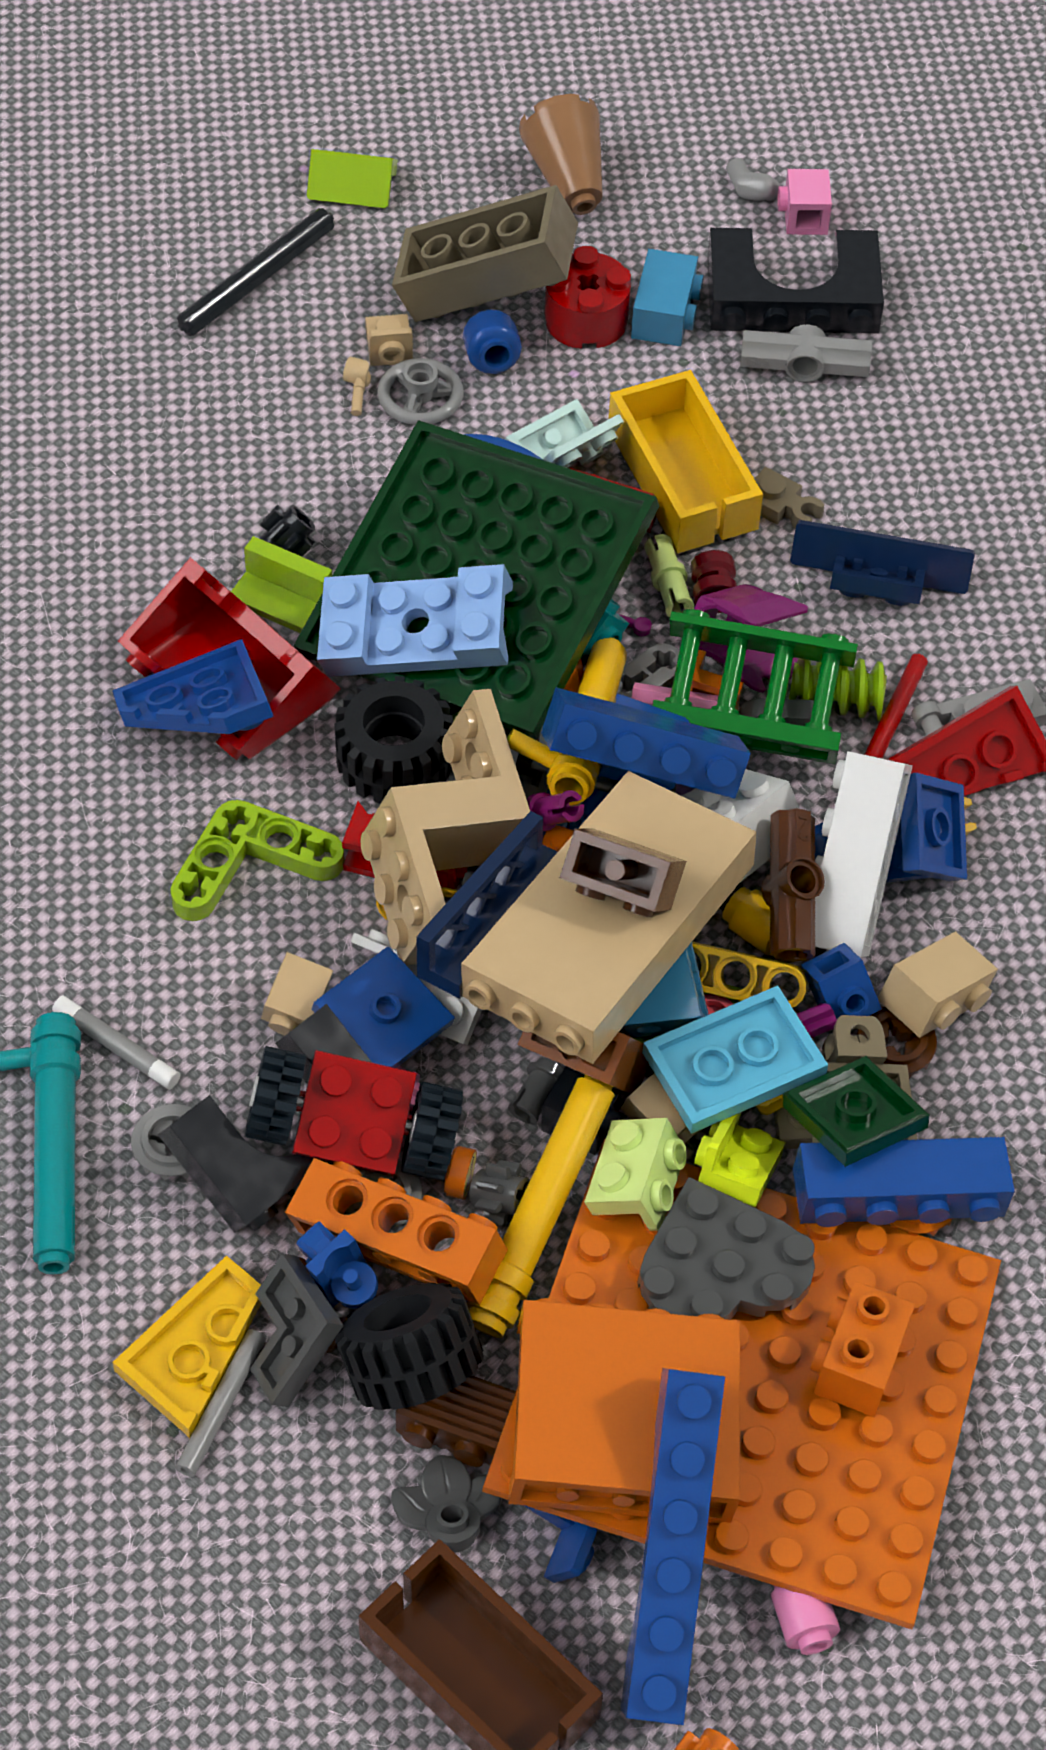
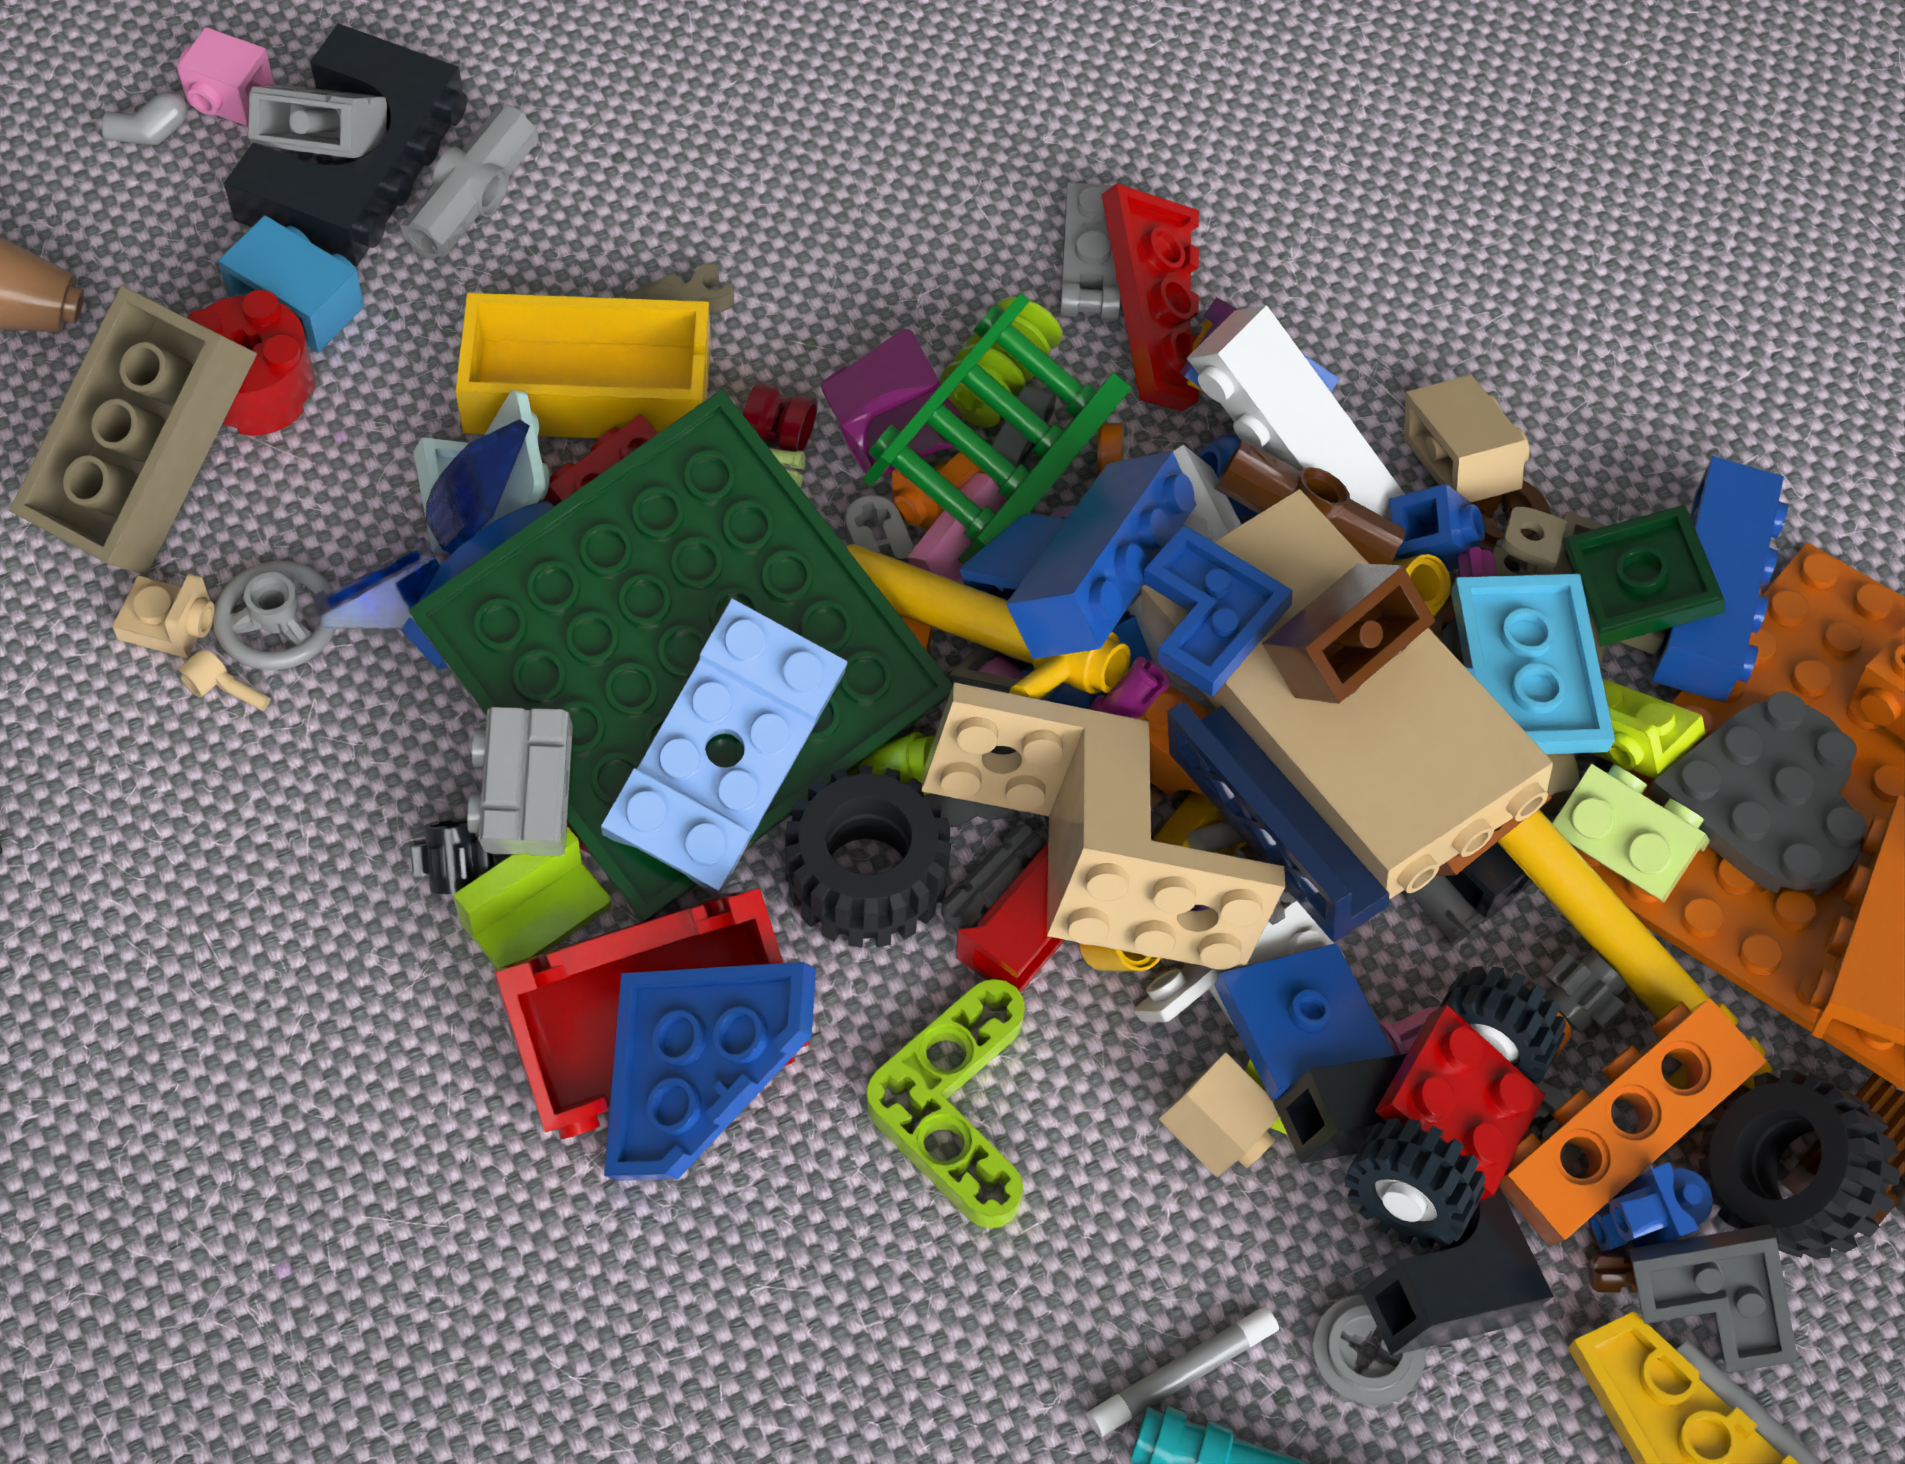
camera: 70 degrees left, 5 degrees up
(334, 527) = (523, 781): none -> light grey brick
(436, 412) = (381, 595): none -> clear blue slope
(492, 341) = (253, 496): blue head -> none
(543, 419) = (473, 485): none -> clear blue slope
(626, 810) = (1227, 607): none -> blue plate
(791, 250) = (316, 120): none -> light grey brick
(804, 776) = (1110, 444): none -> orange tile
(881, 563) = (838, 249): dark blue bracket -> none
(897, 706) = (1070, 348): red bar -> none

